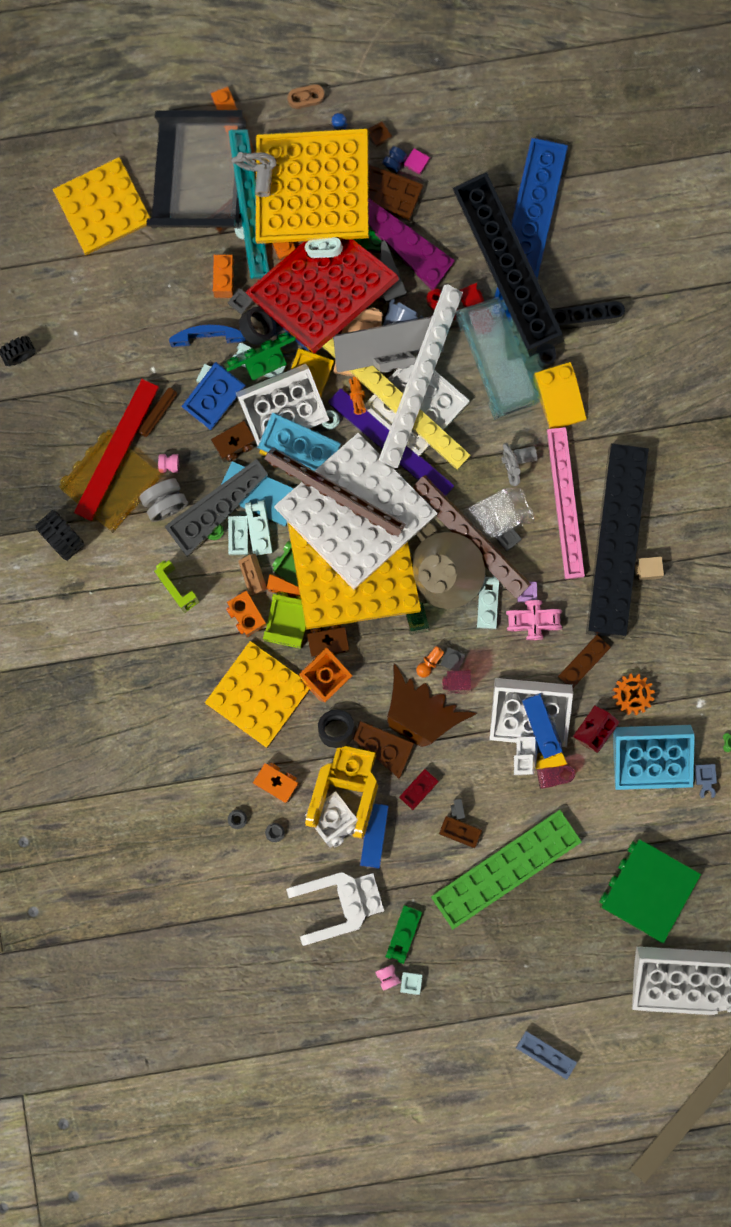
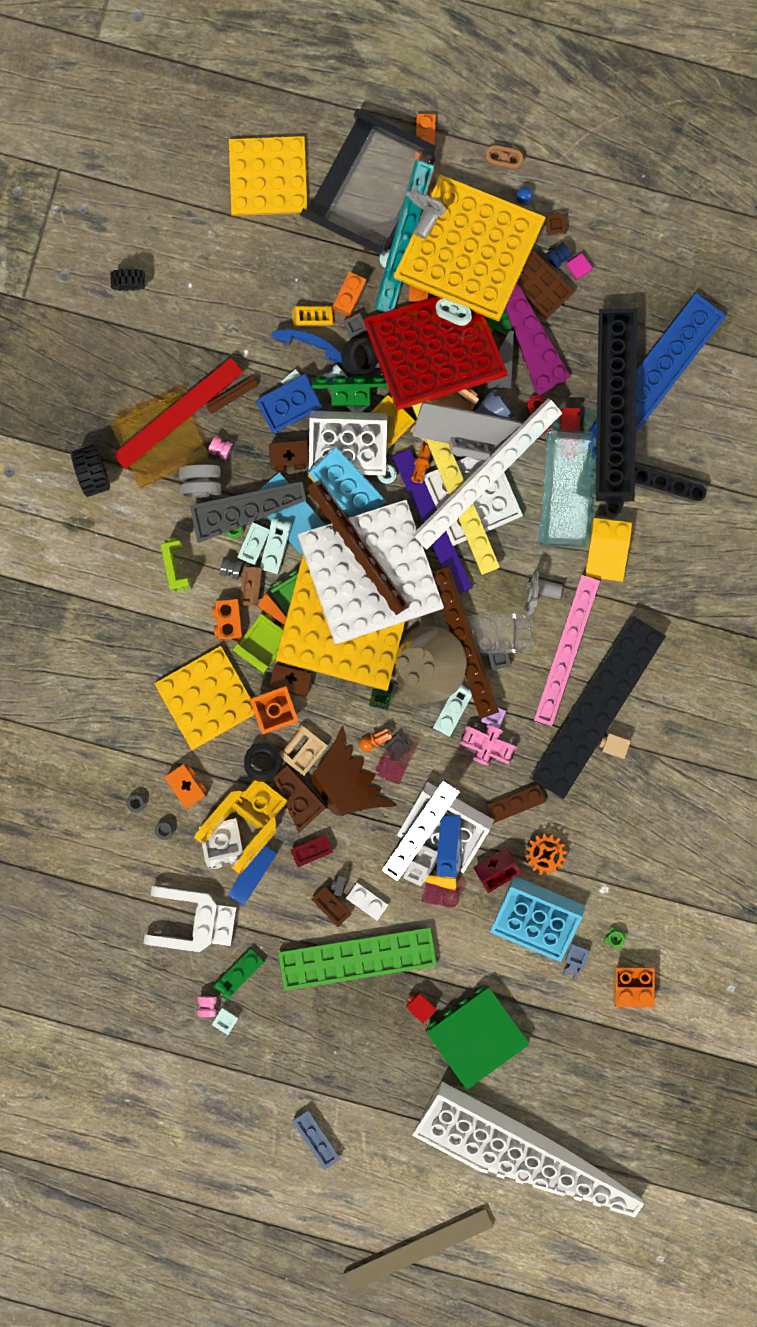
camera: 15 degrees right, 5 degrees up
(188, 322) = (312, 323): none -> yellow slope
(227, 566) = (231, 568): none -> dark grey wheel
(374, 703) = (308, 753): none -> tan plate
(490, 813) = (367, 901): none -> white plate
(510, 722) = (421, 829): none -> plate
(584, 887) = (420, 1007): none -> red brick

